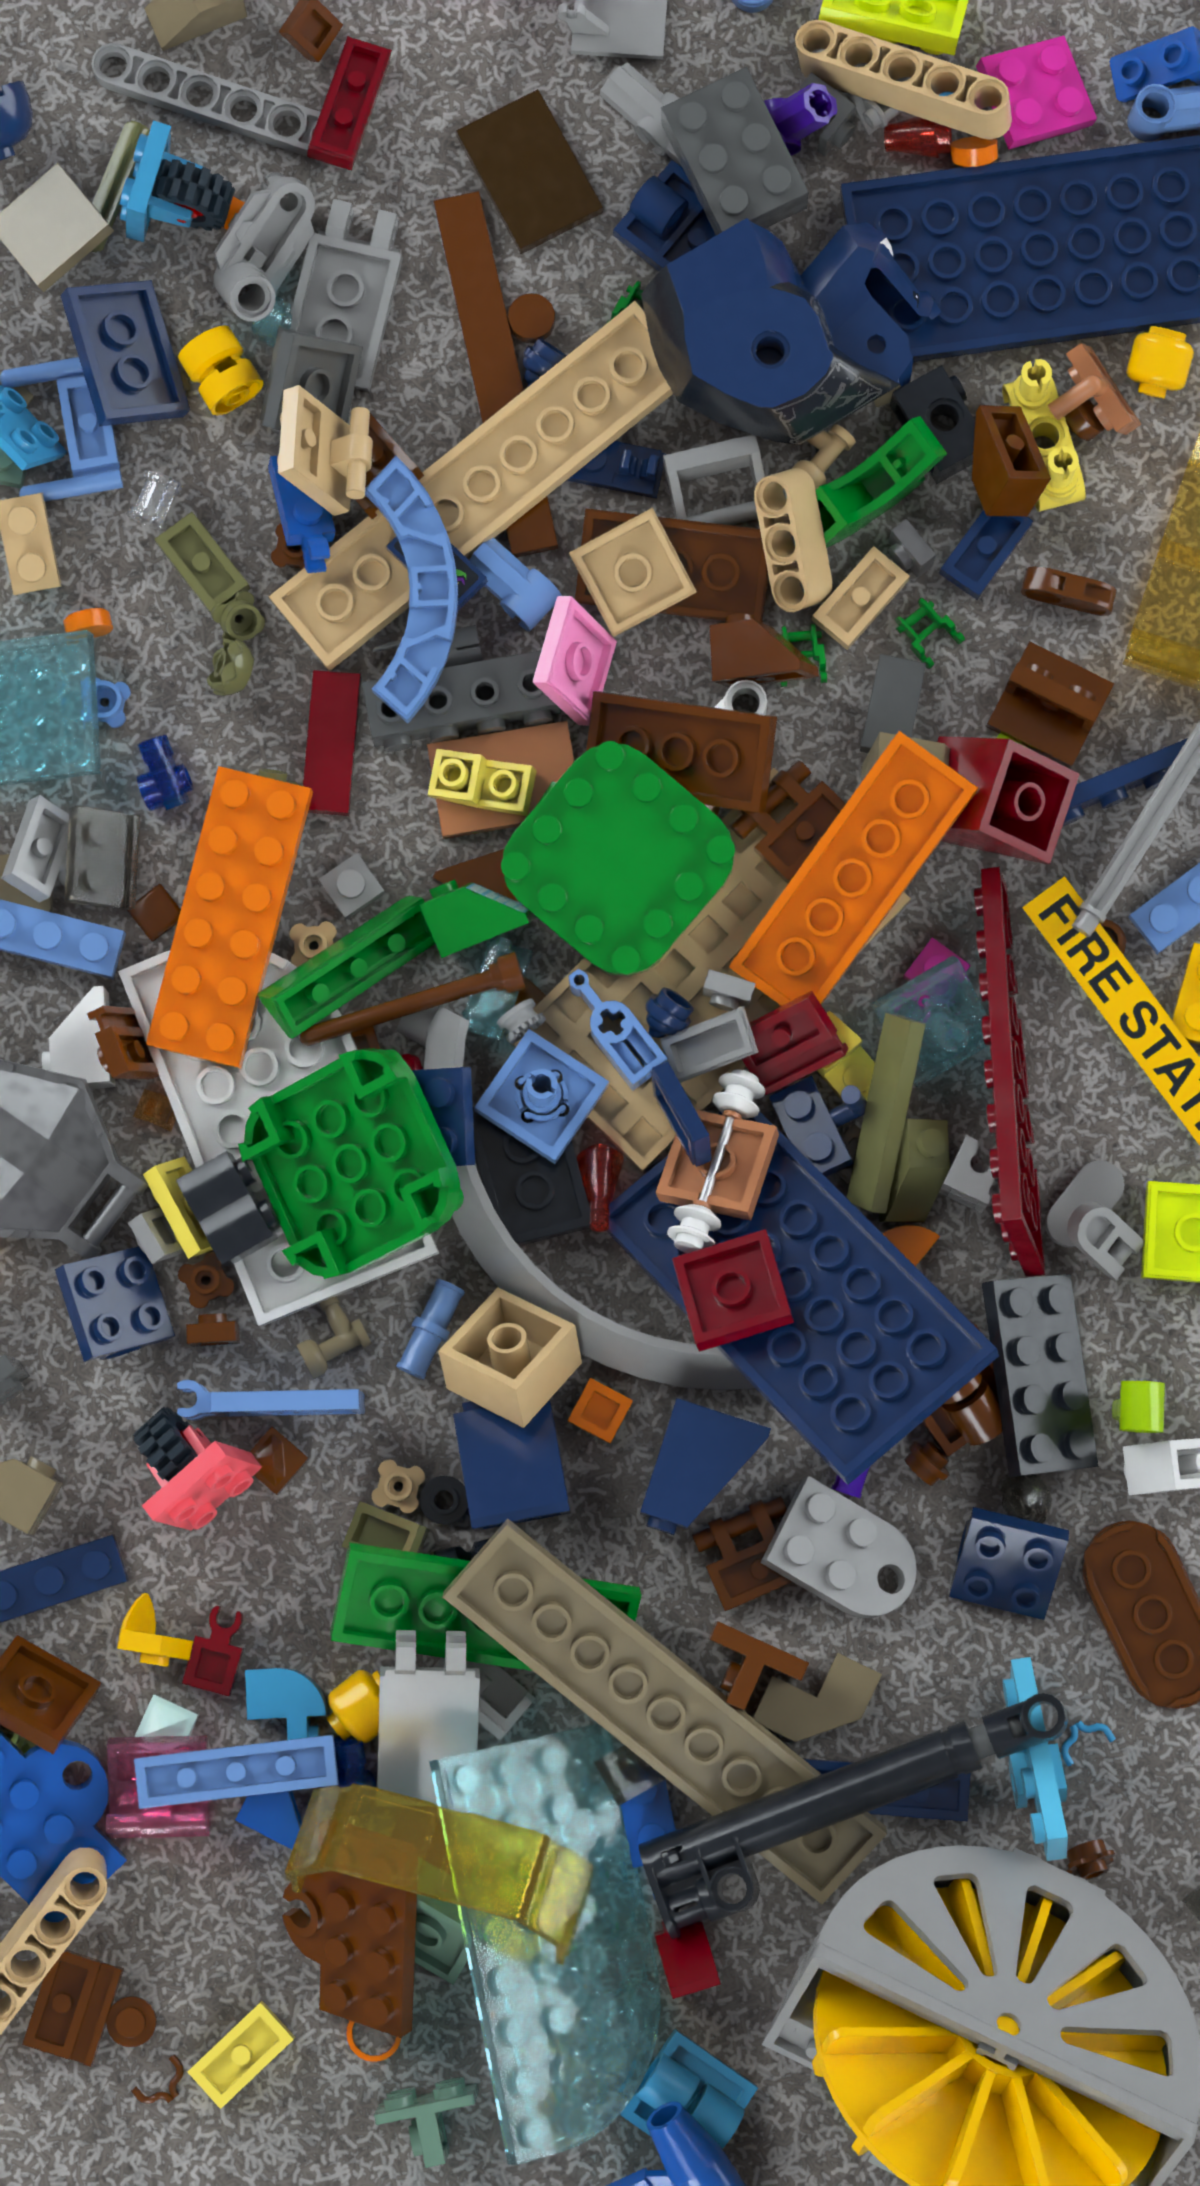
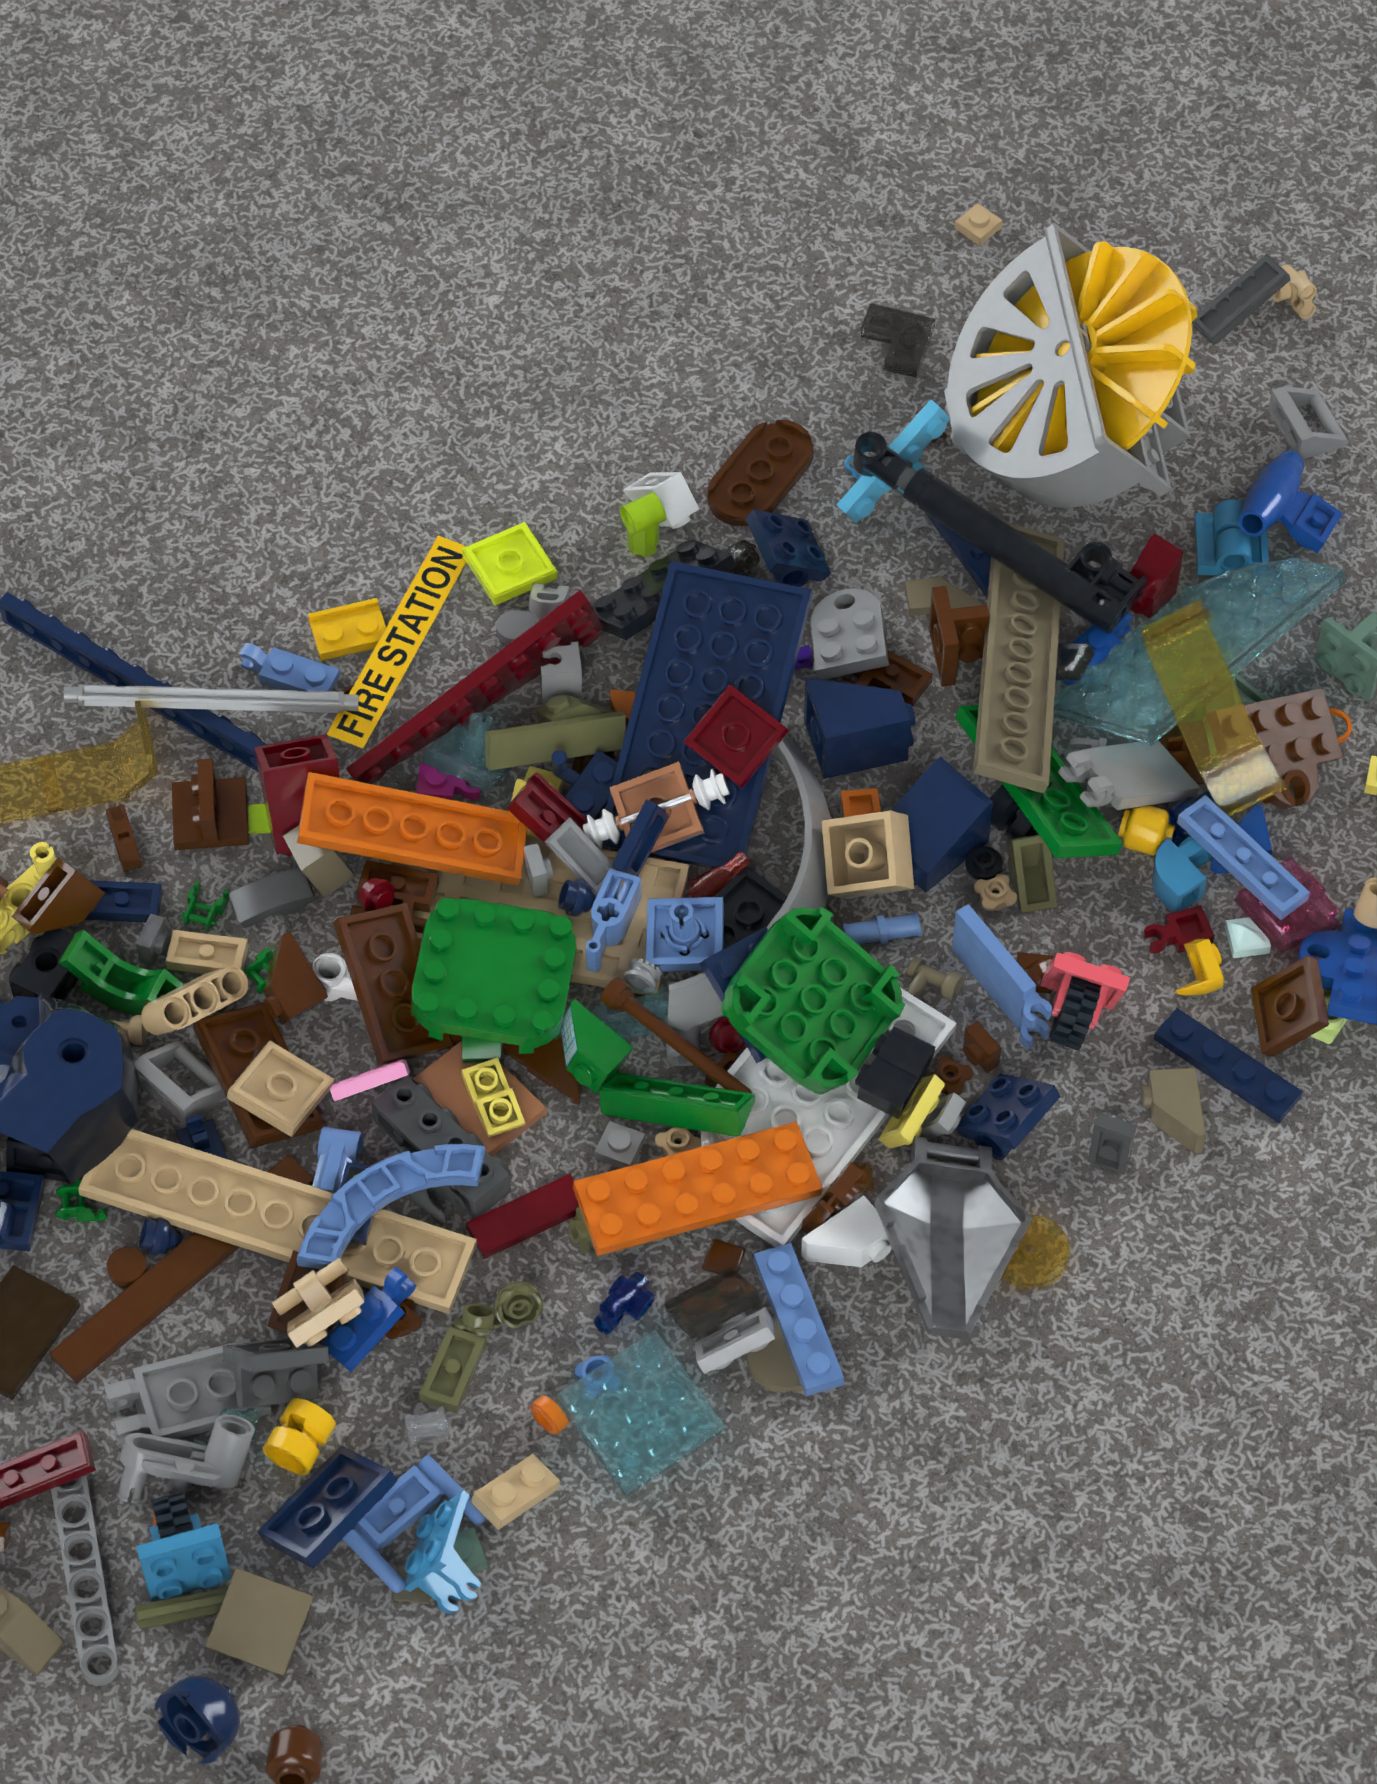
camera: 125 degrees left, 25 degrees down
(788, 787) = (376, 894): none -> dark red plate

